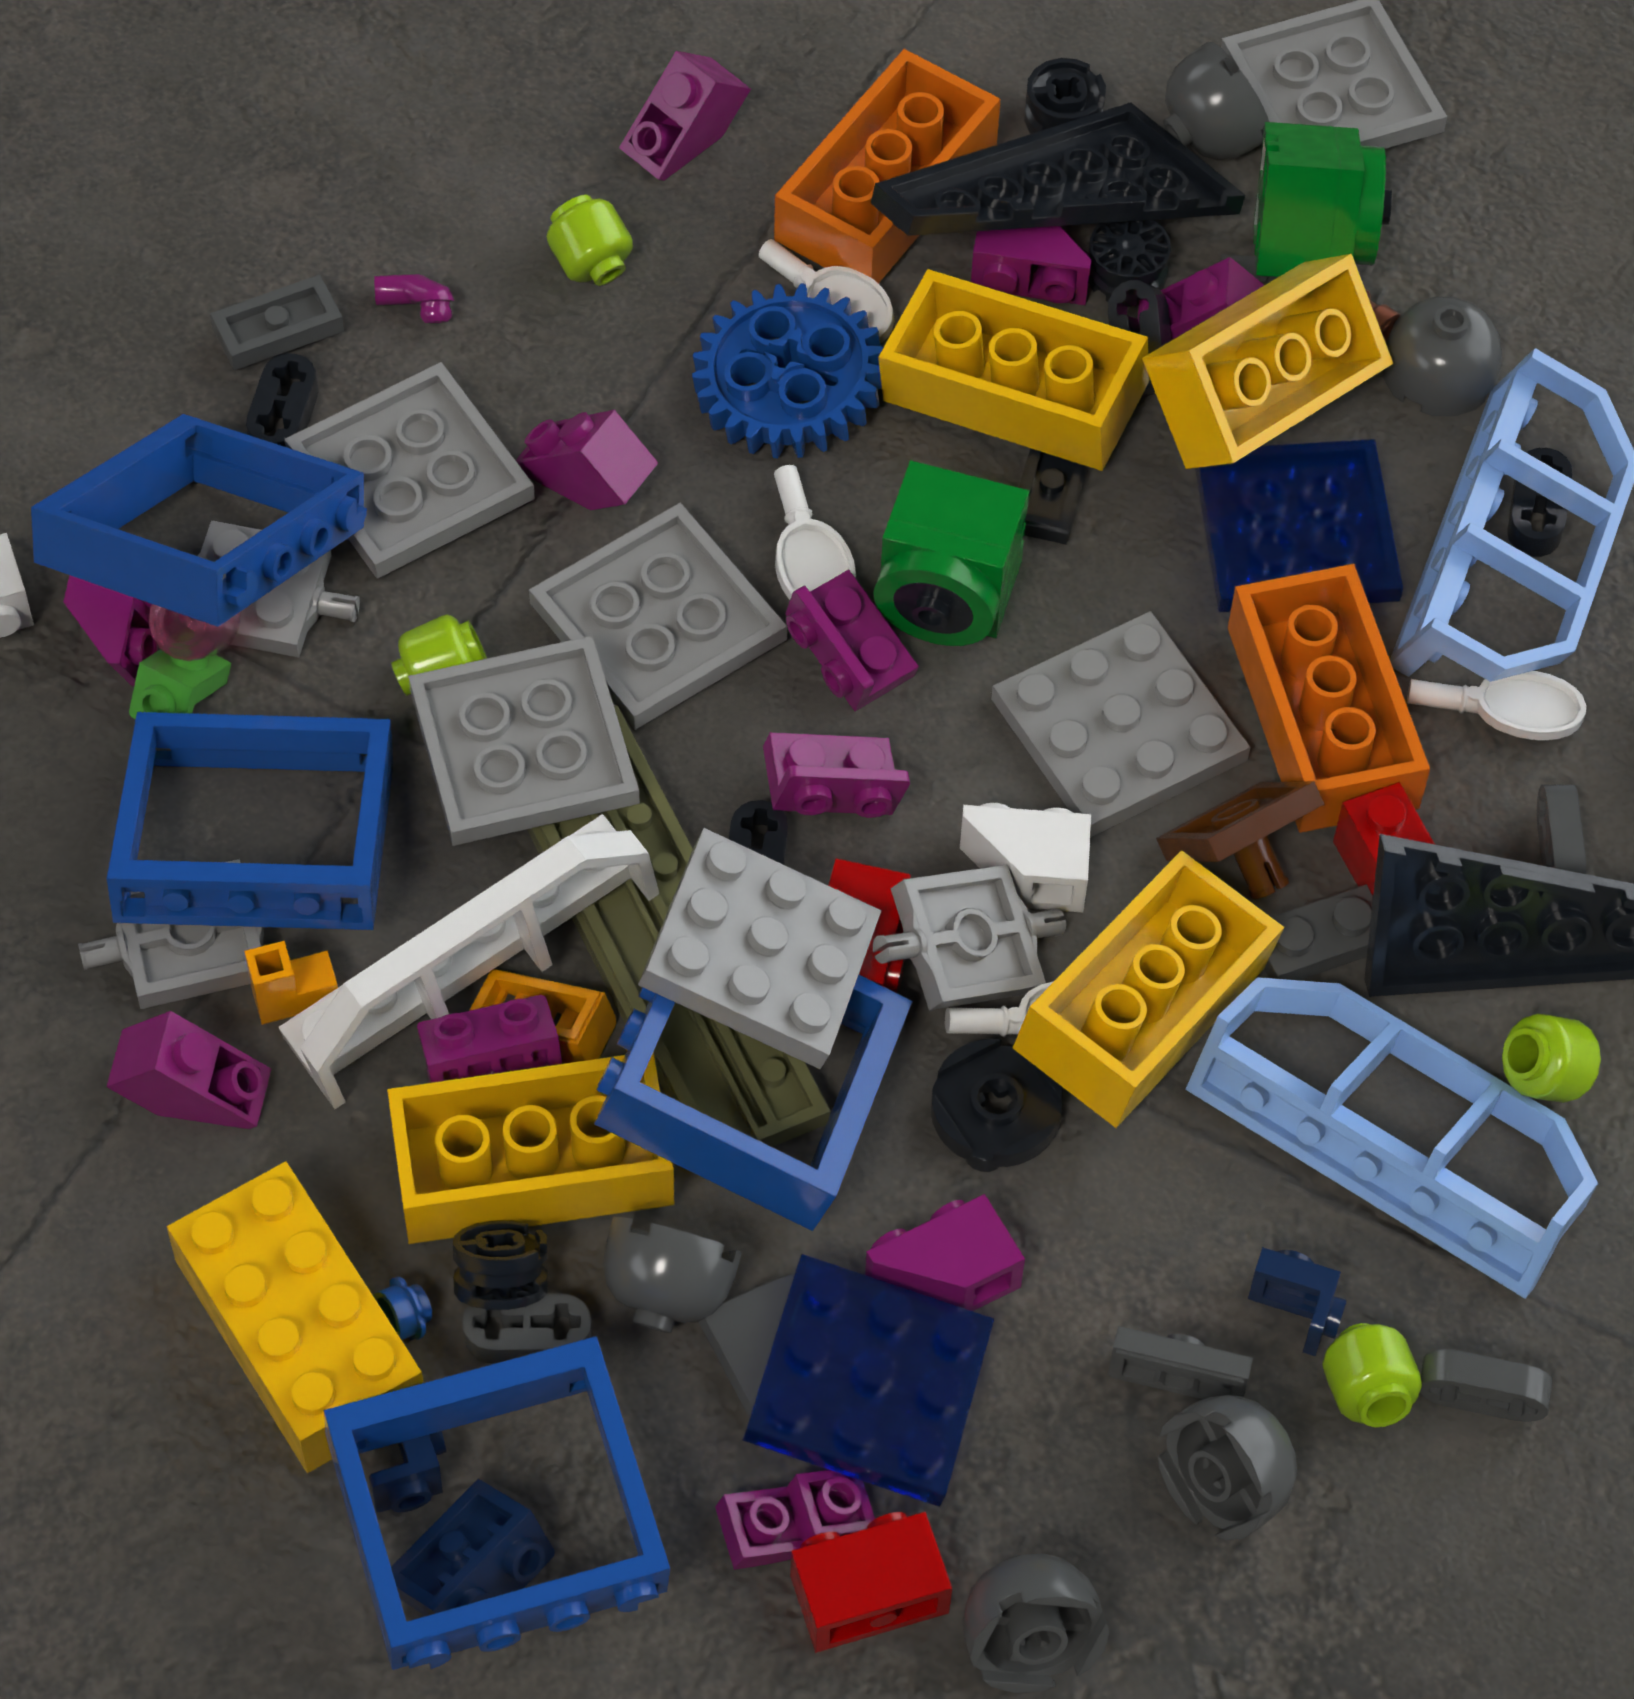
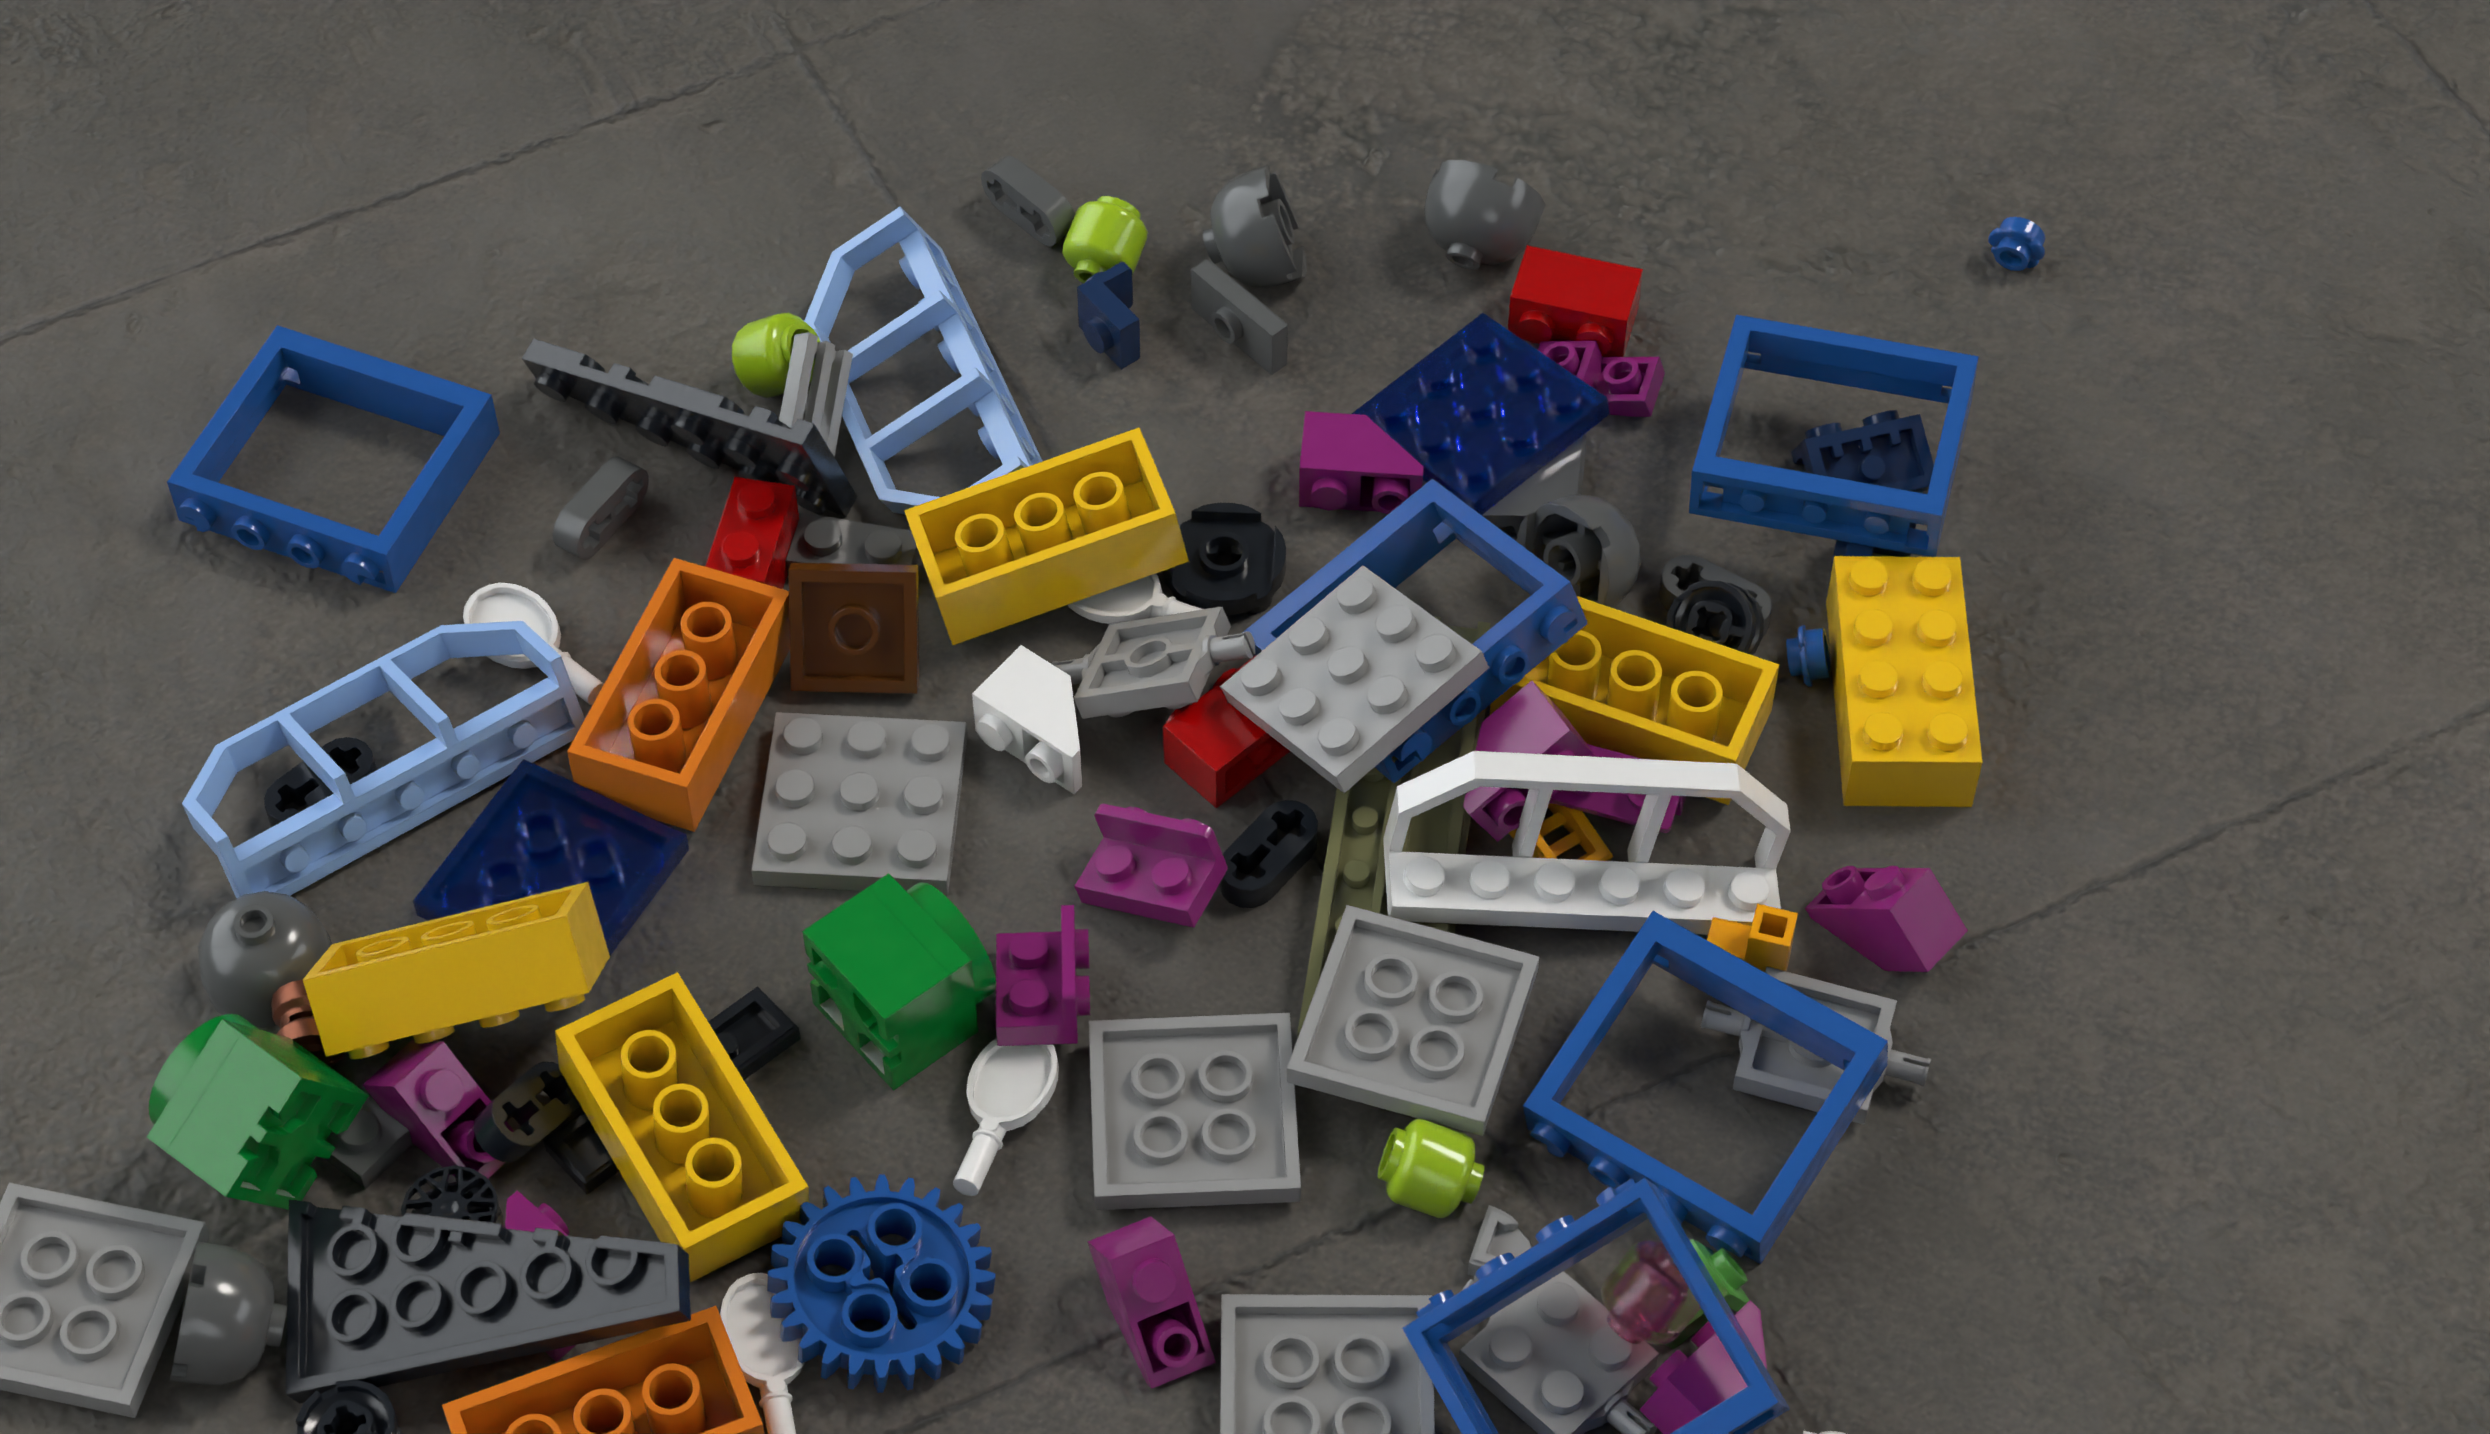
camera: 145 degrees left, 5 degrees down
(346, 650) = (1496, 1237): none -> light grey tile
(569, 982) = (1521, 725): none -> magenta slope
(1445, 997) = (828, 387): none -> light grey tile

